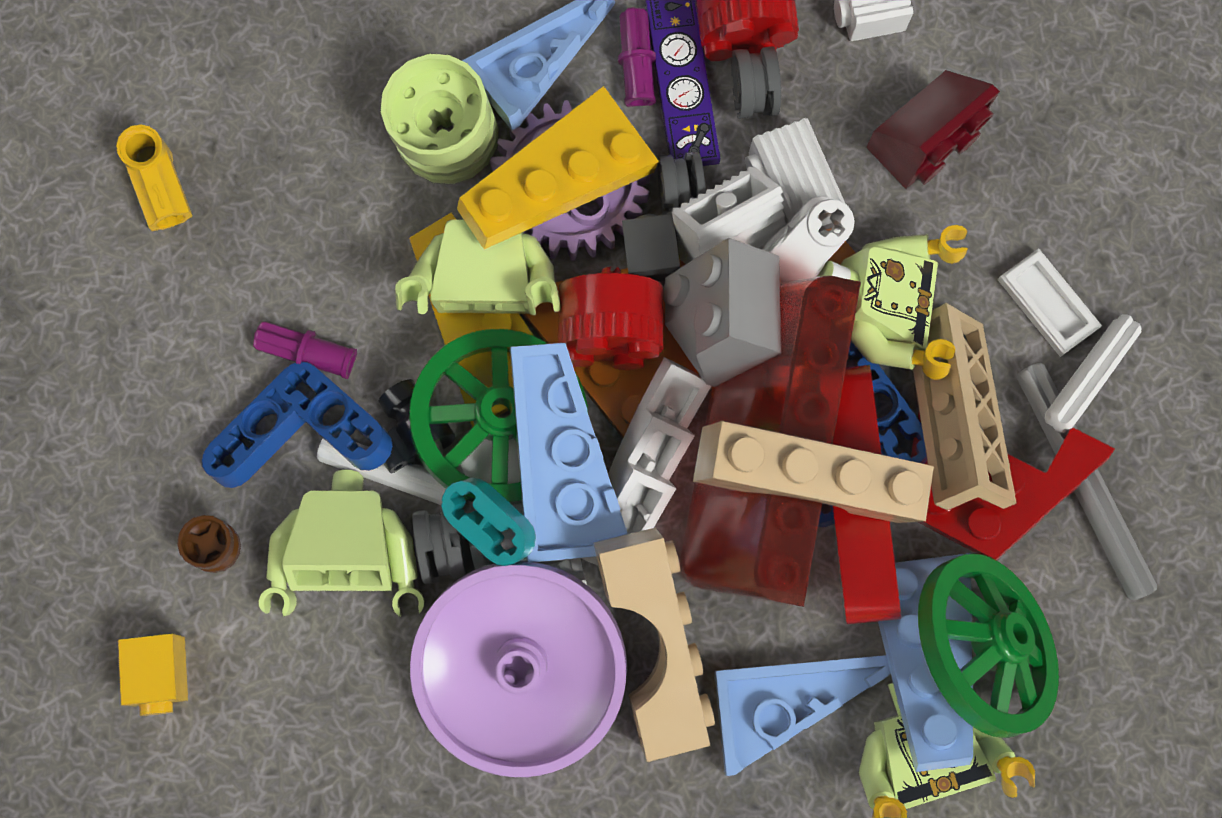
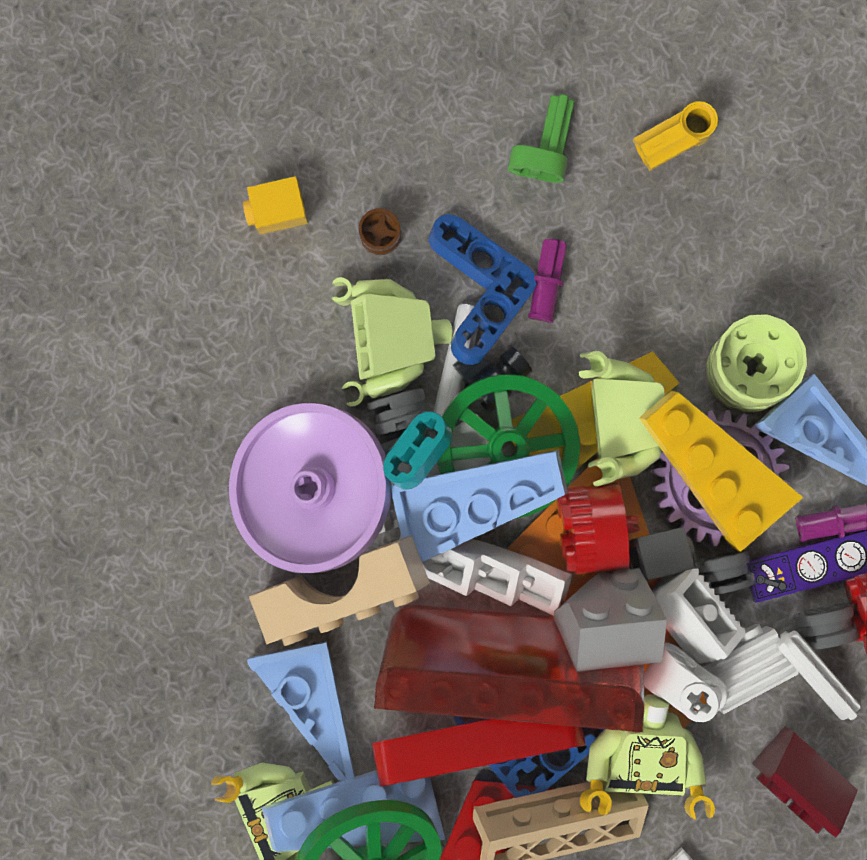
camera: 85 degrees right, 10 degrees up
(153, 351) = (547, 161): none -> bright green piece
(810, 97) = (818, 675): none -> white axle
(814, 471) = (478, 707): tan arch -> none

